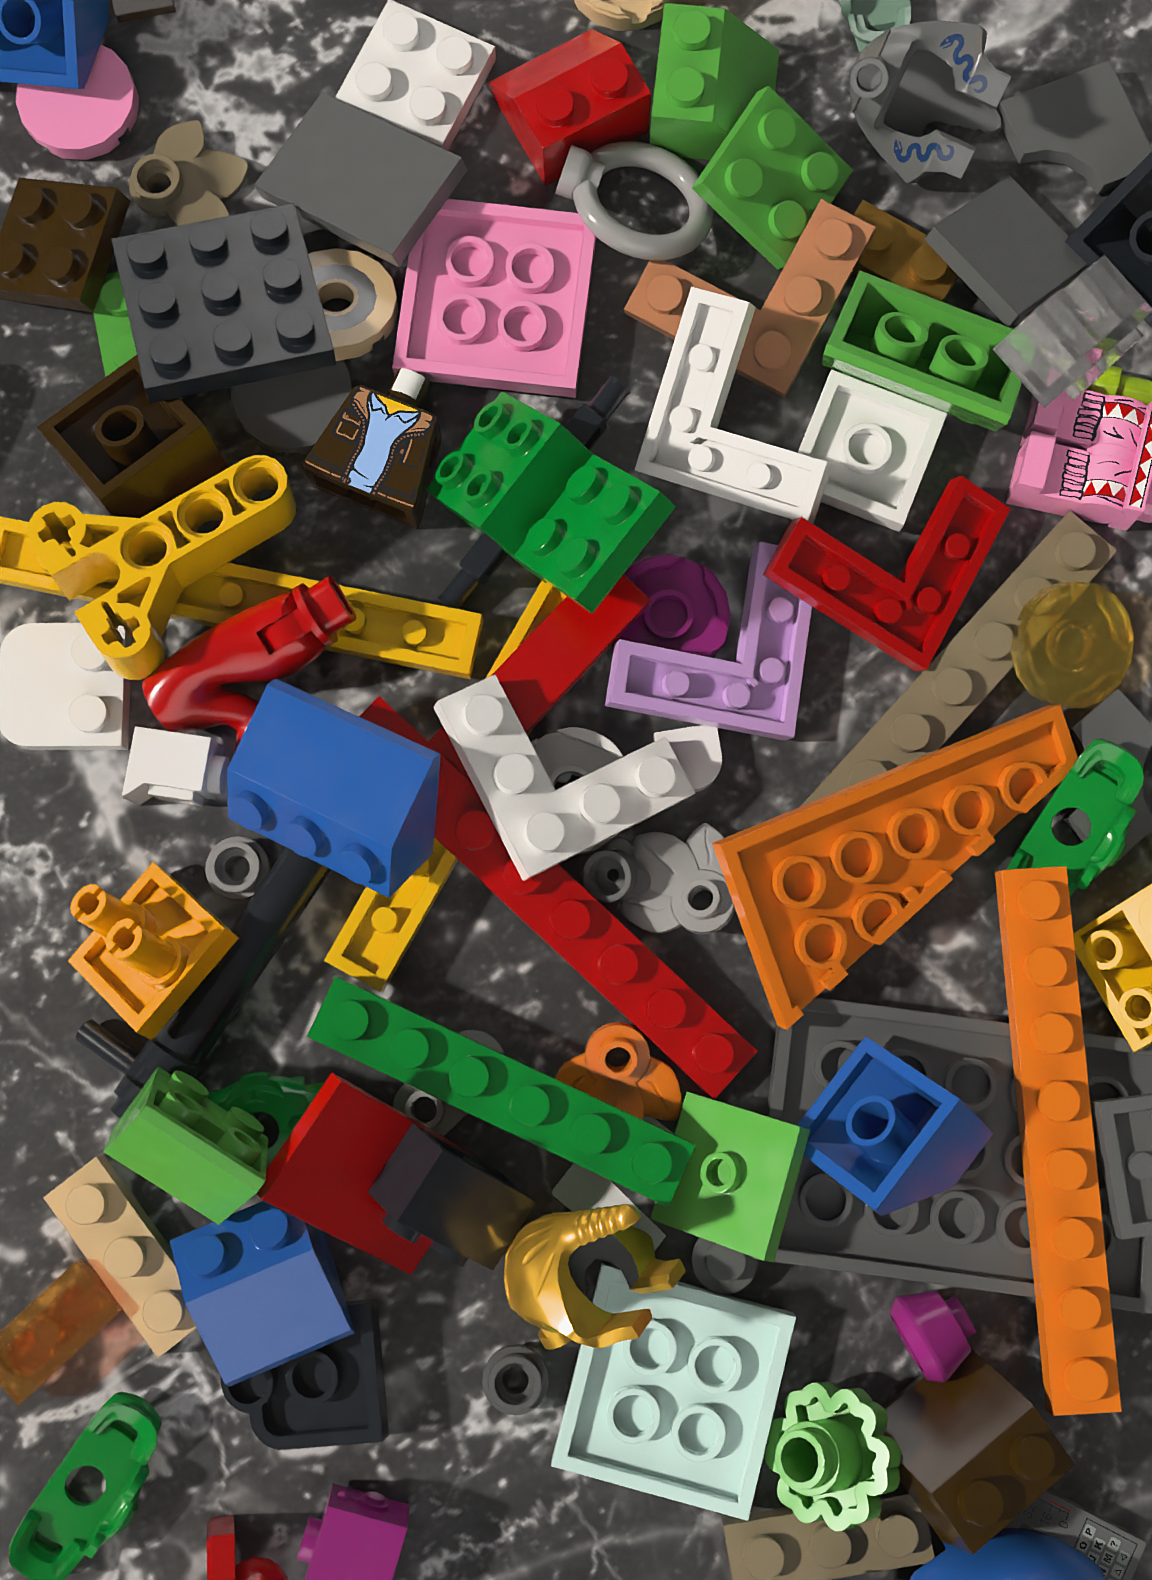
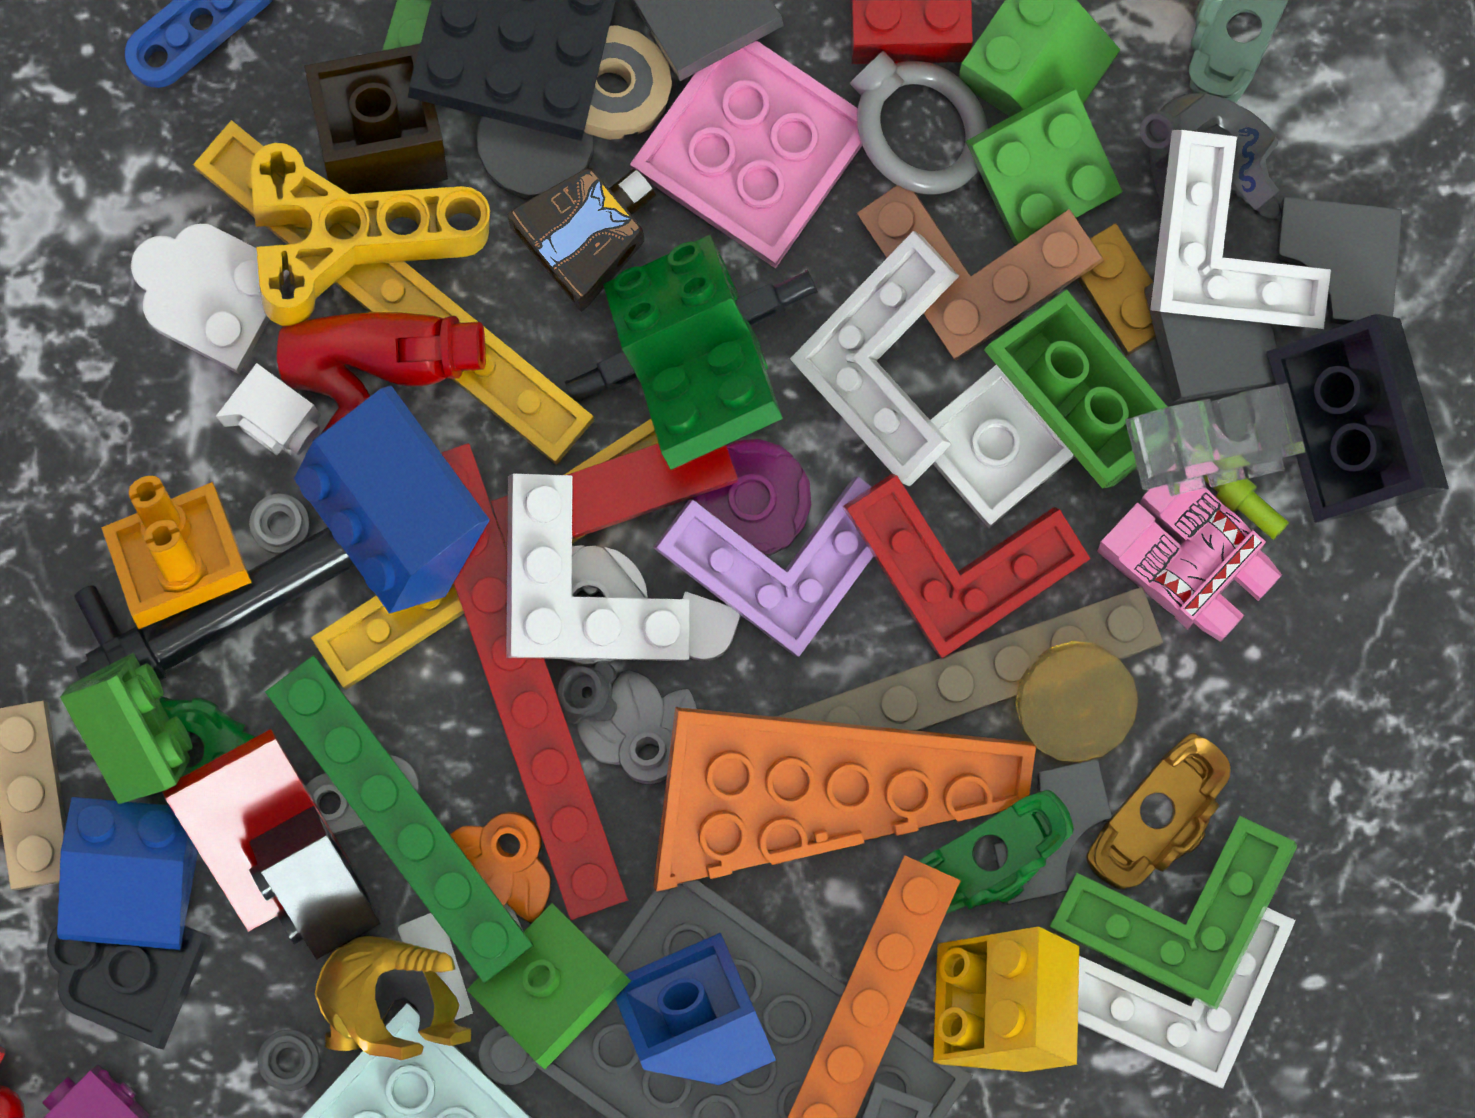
camera: 25 degrees right, 0 degrees up
(965, 189) = (1189, 261): none -> white plate

